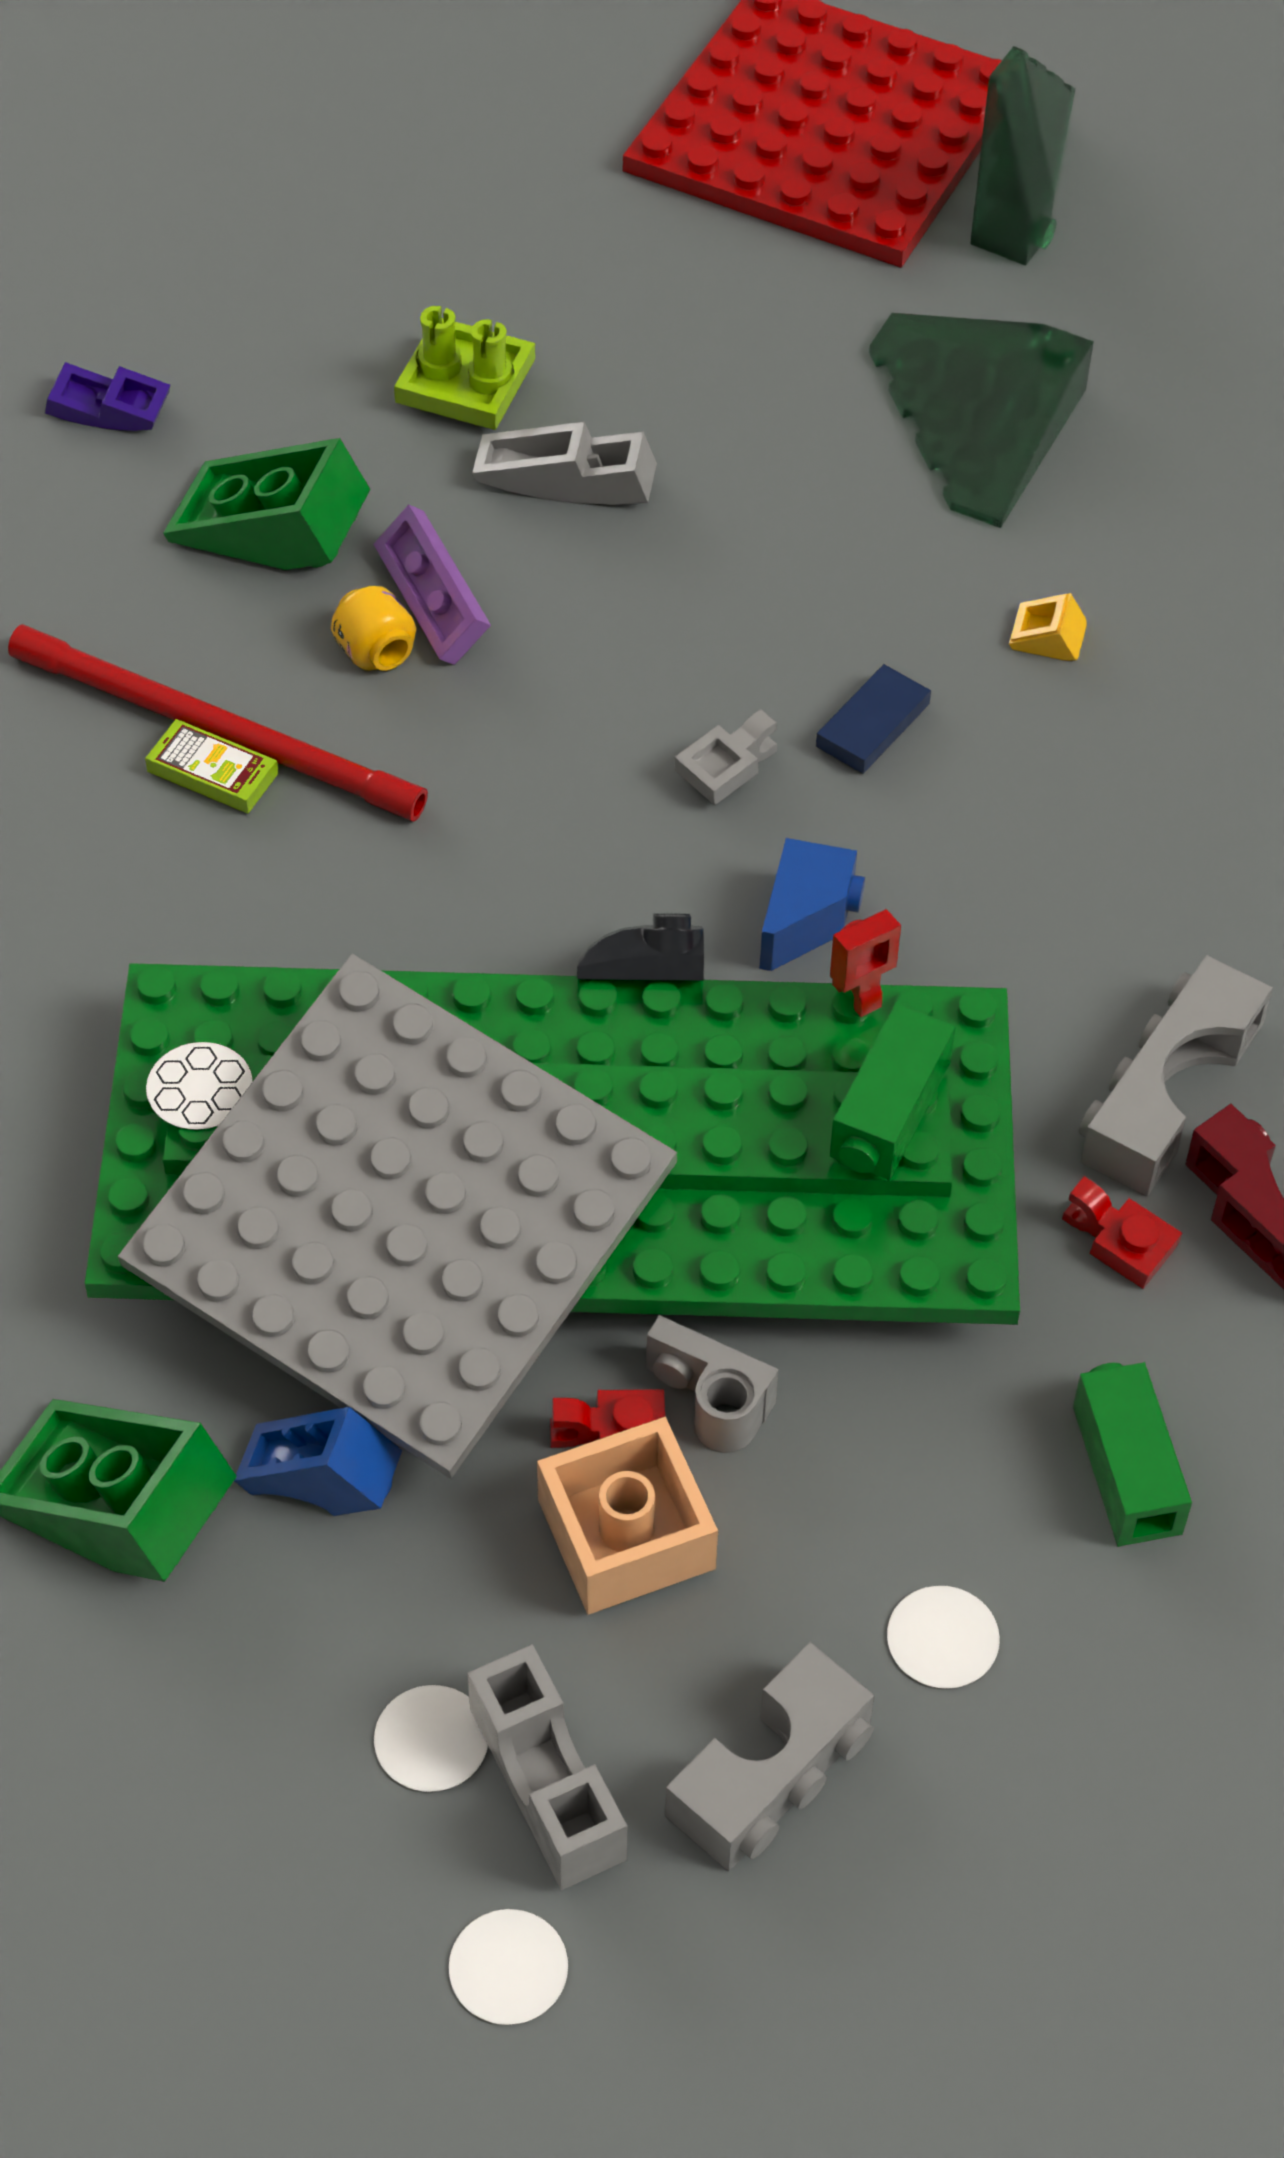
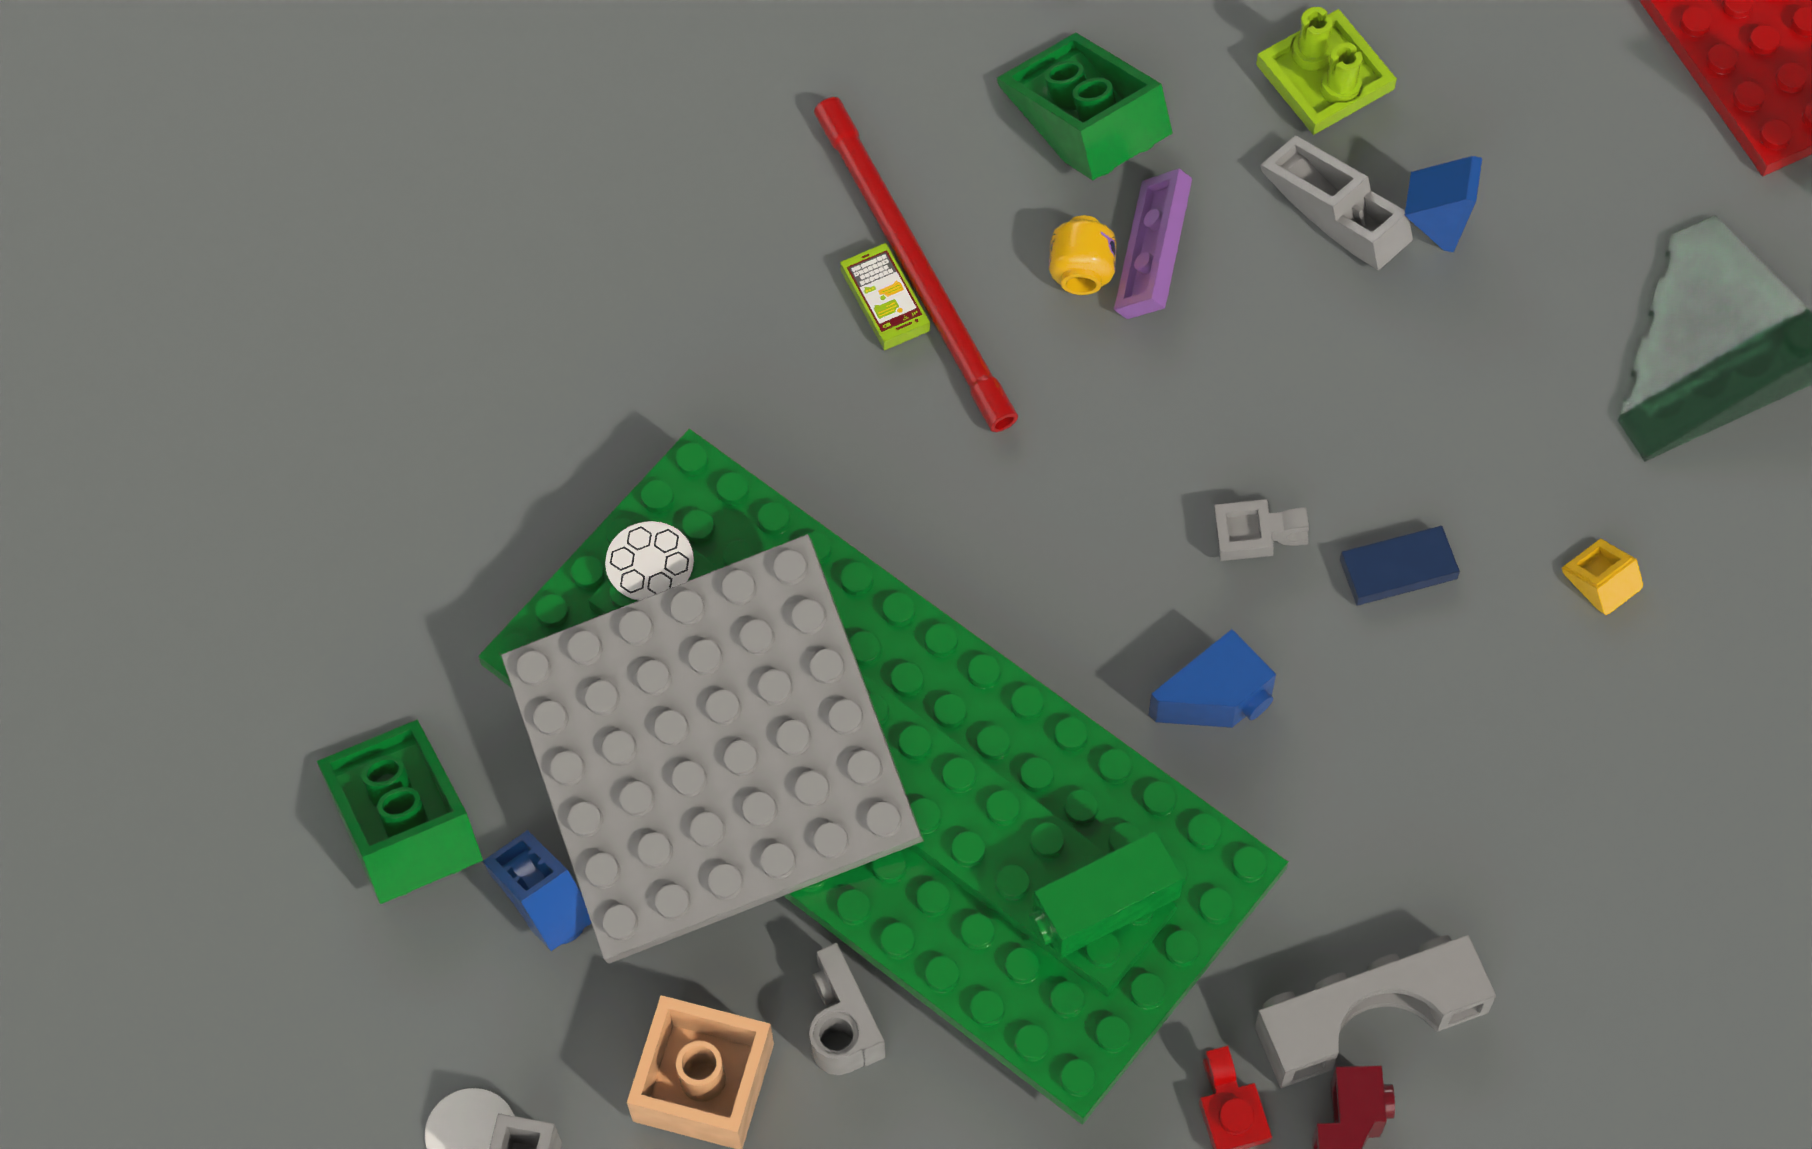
camera: 40 degrees right, 10 degrees up
(615, 1411) = (760, 998): red plate -> none
(648, 952) = (1054, 659): black slope -> none
(671, 401) = (1443, 199): none -> blue slope
(861, 955) = (1172, 773): red plate -> none

